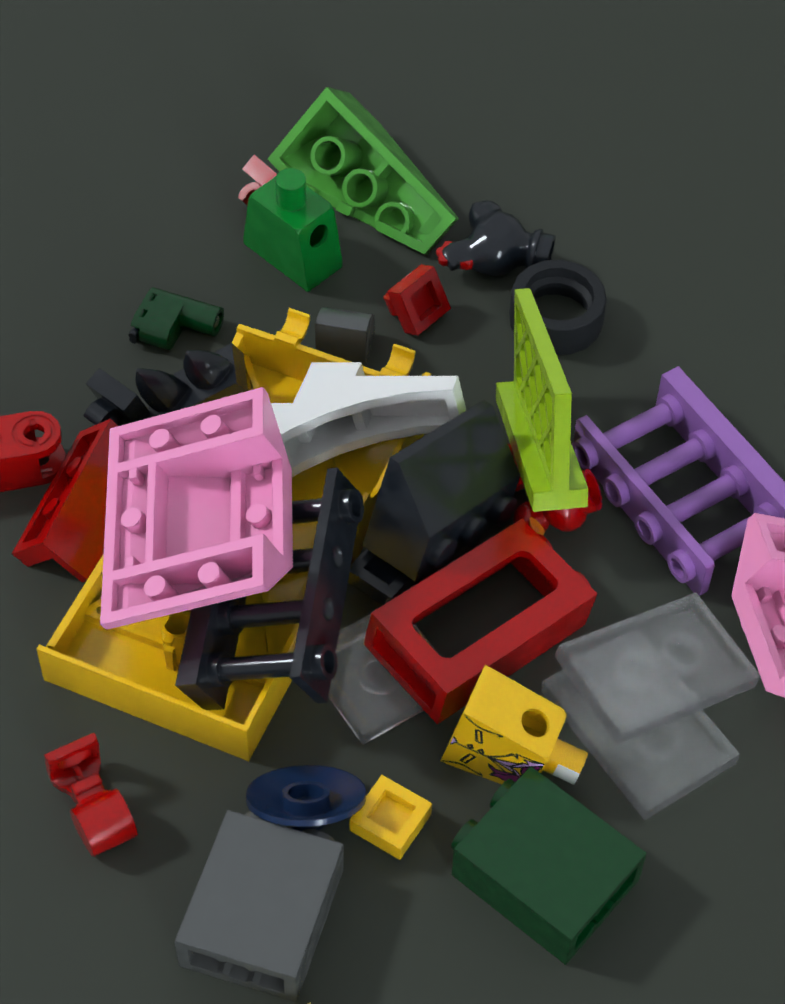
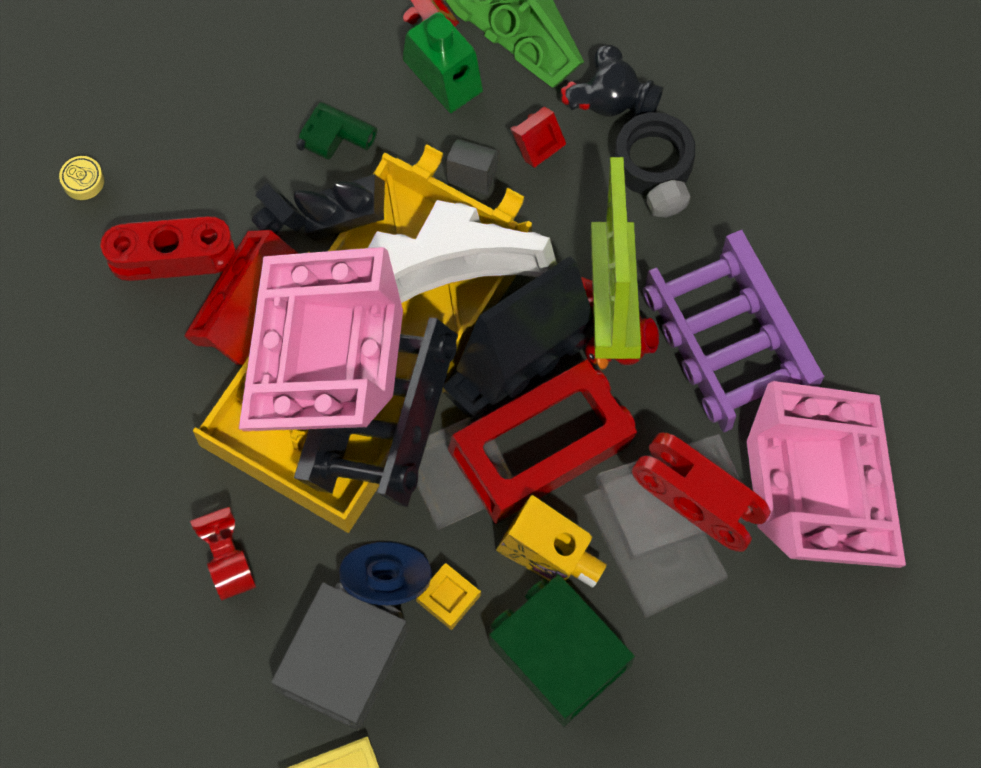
camera: 10 degrees right, 15 degrees up
(583, 349) = (668, 198): none -> light grey tile
(692, 648) = (700, 491): none -> red piece

